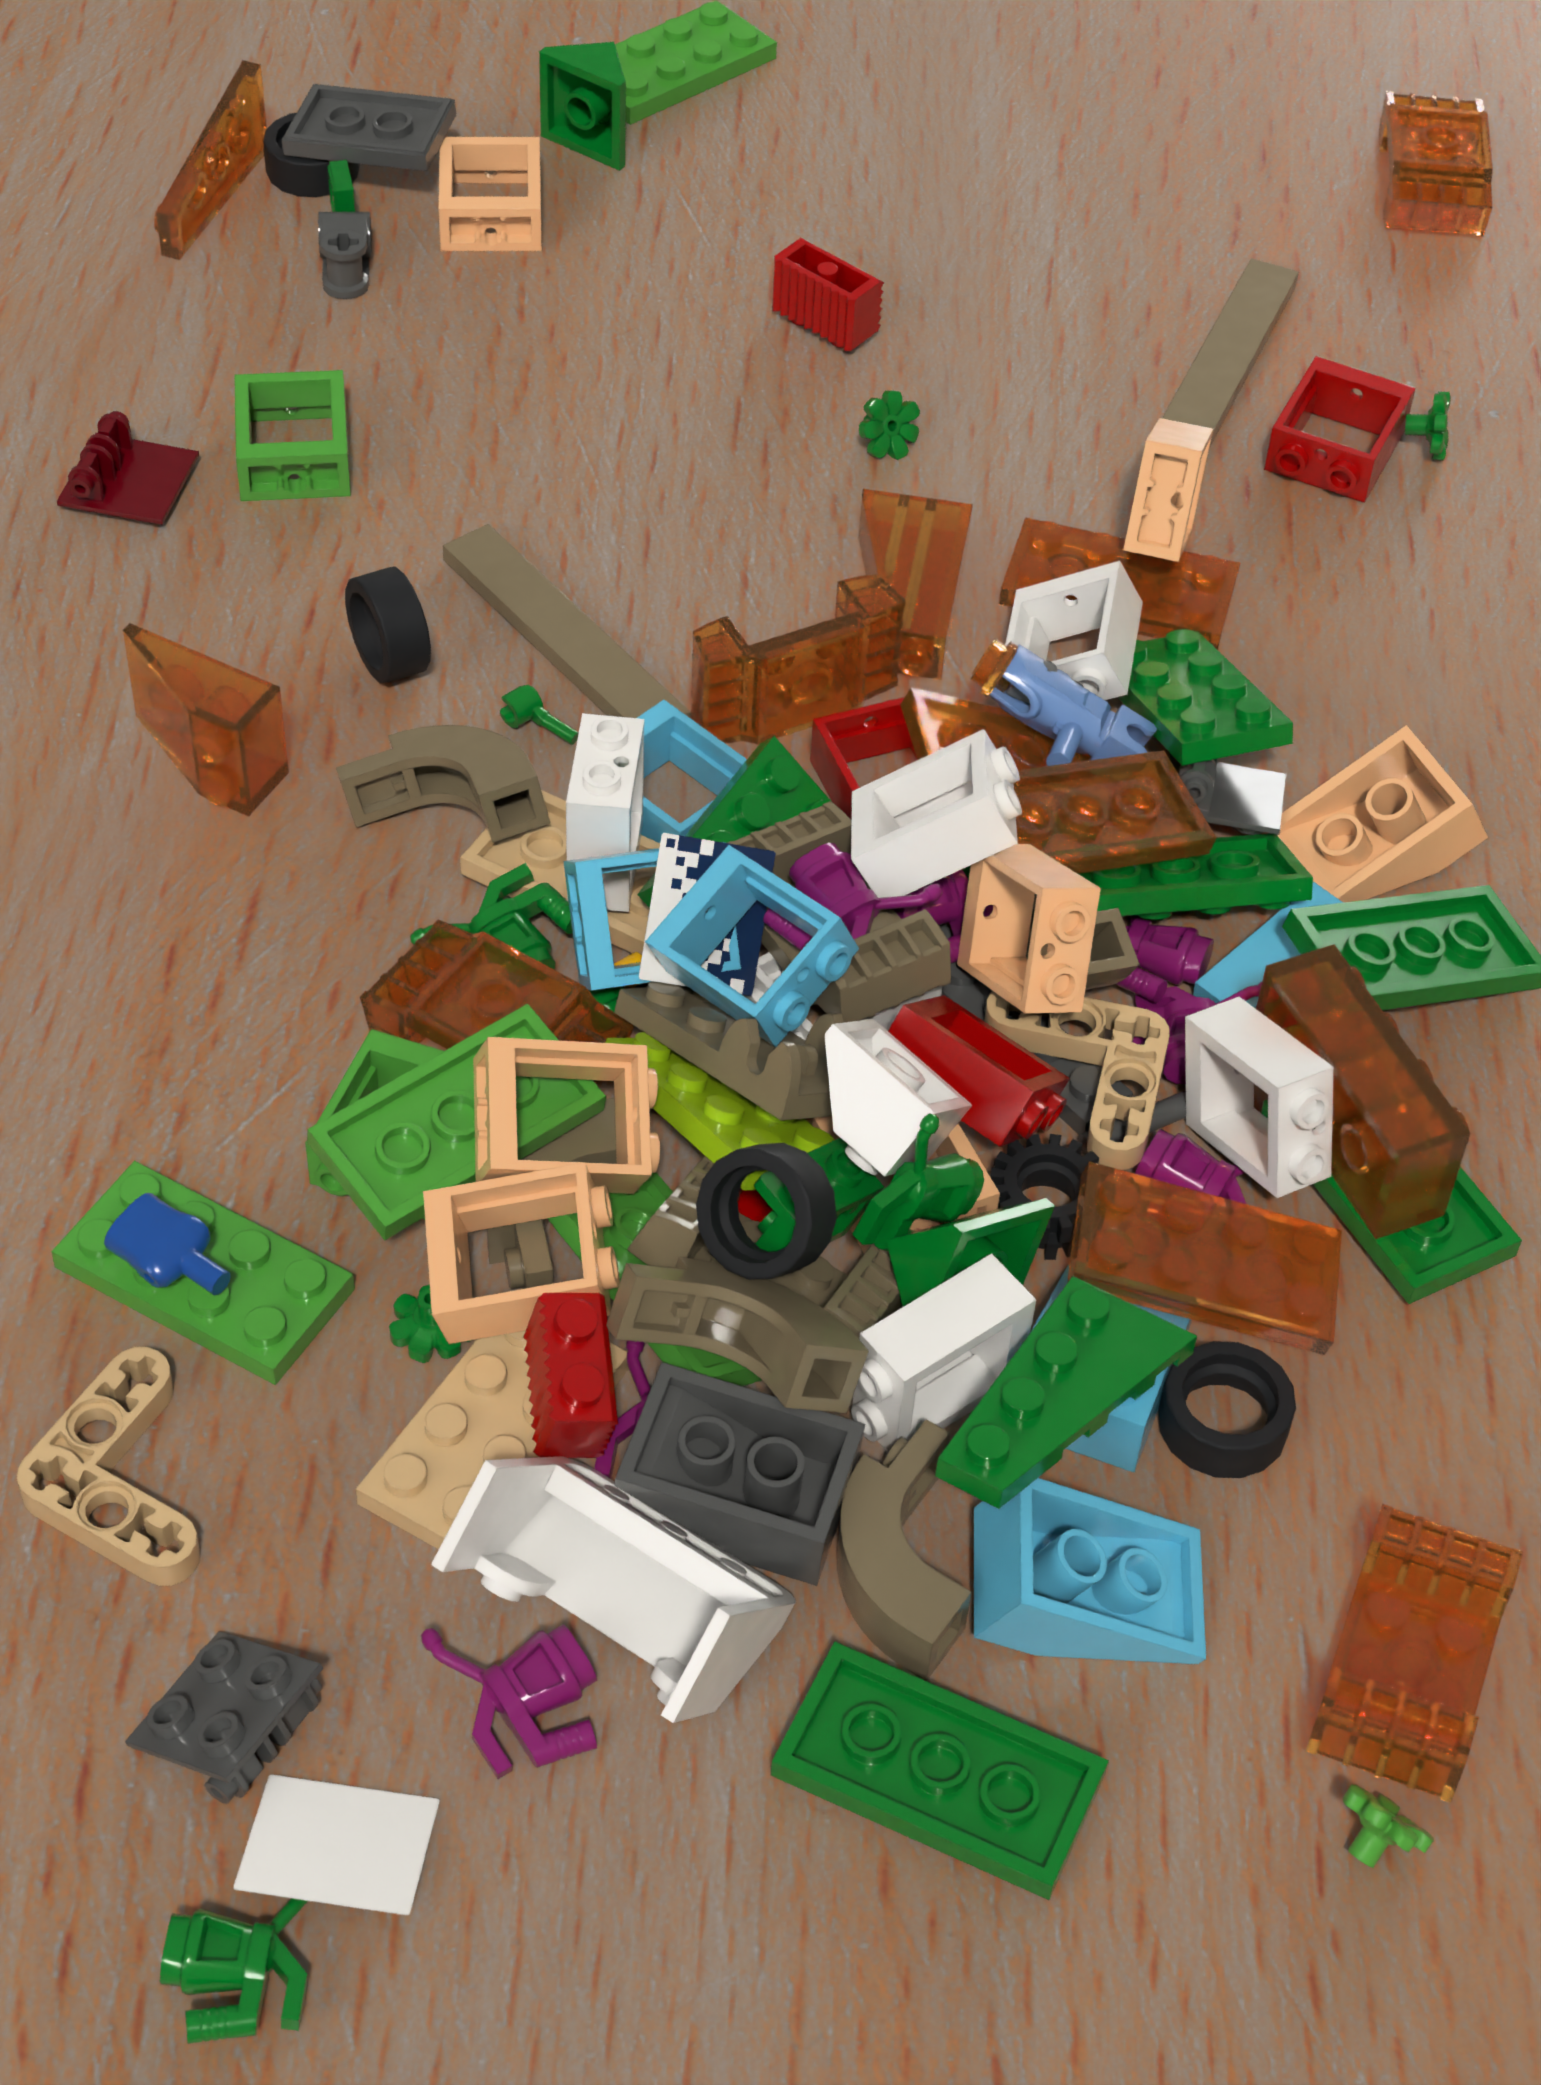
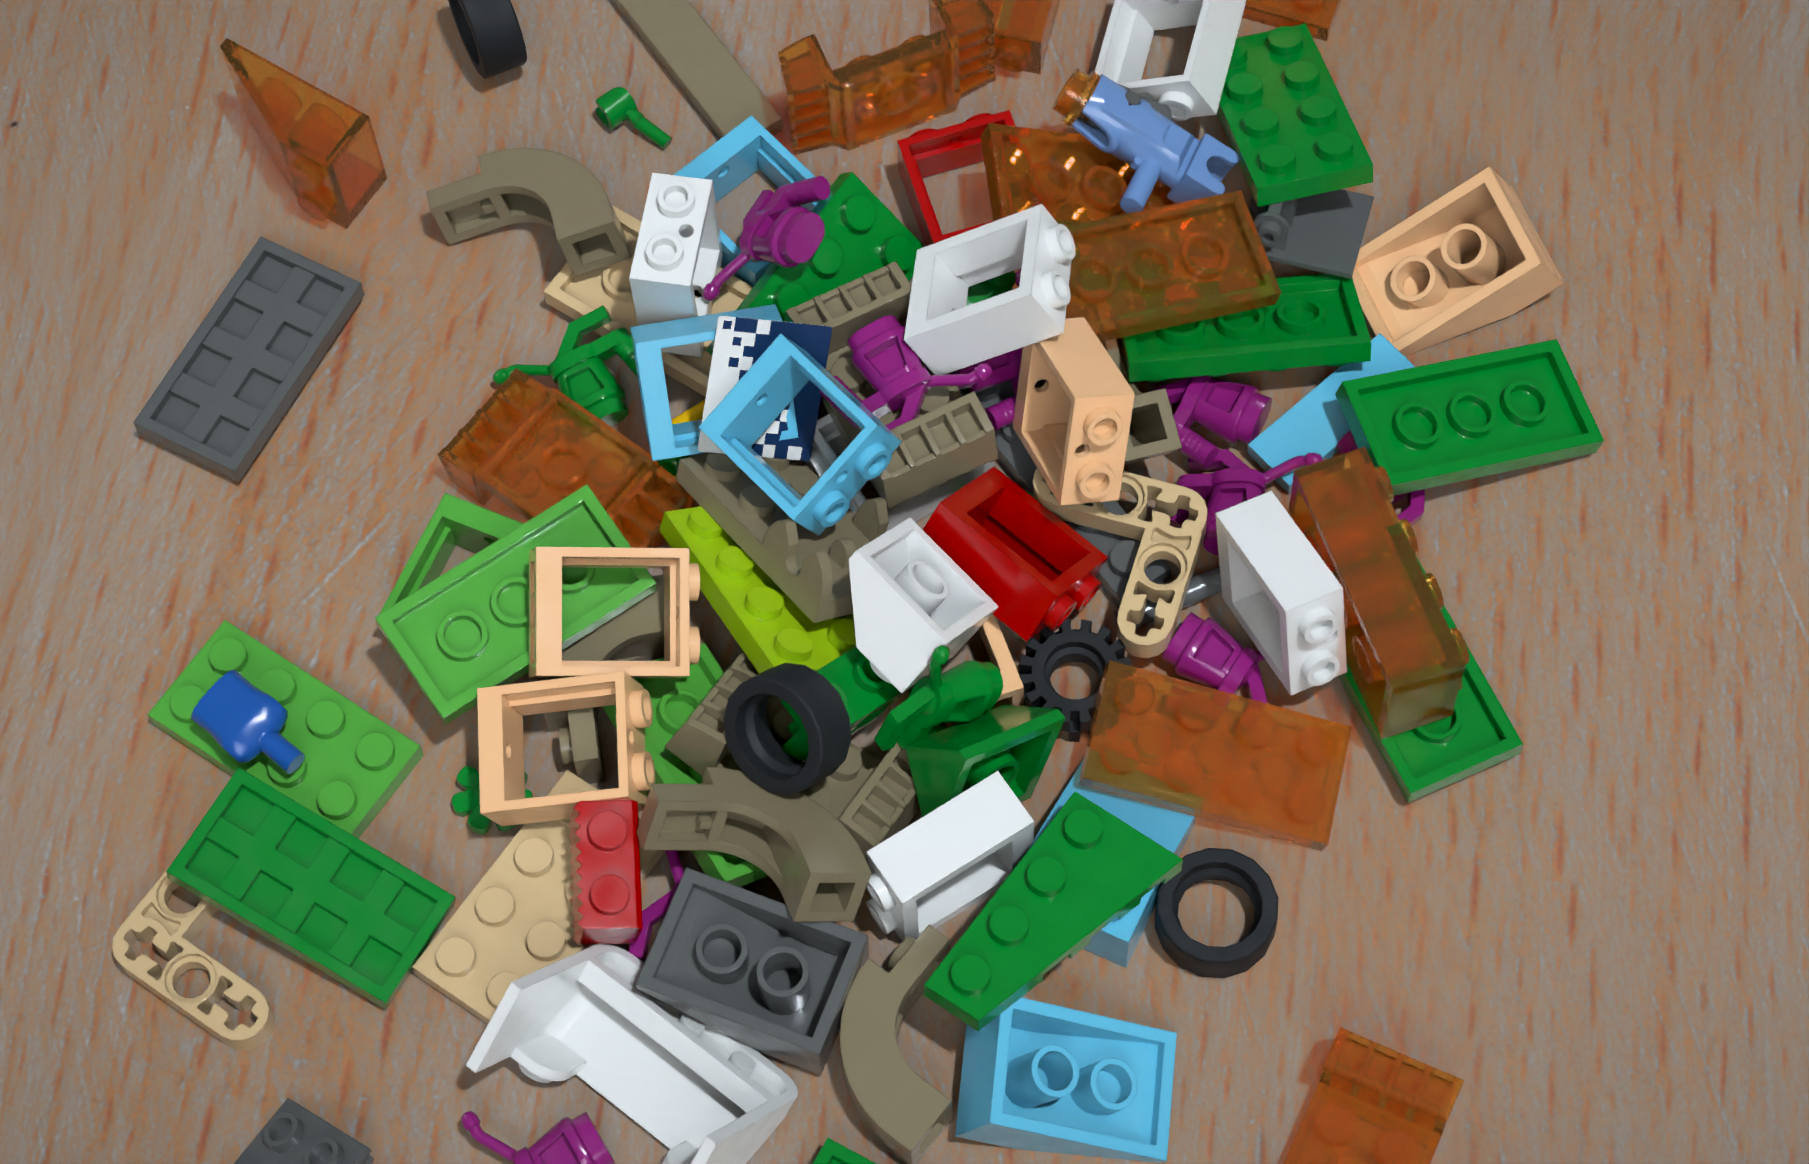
camera: 10 degrees right, 15 degrees up
(152, 925) = (249, 359): none -> dark grey plate
(241, 1409) = (311, 887): none -> green plate
(707, 783) = (778, 229): none -> magenta piece

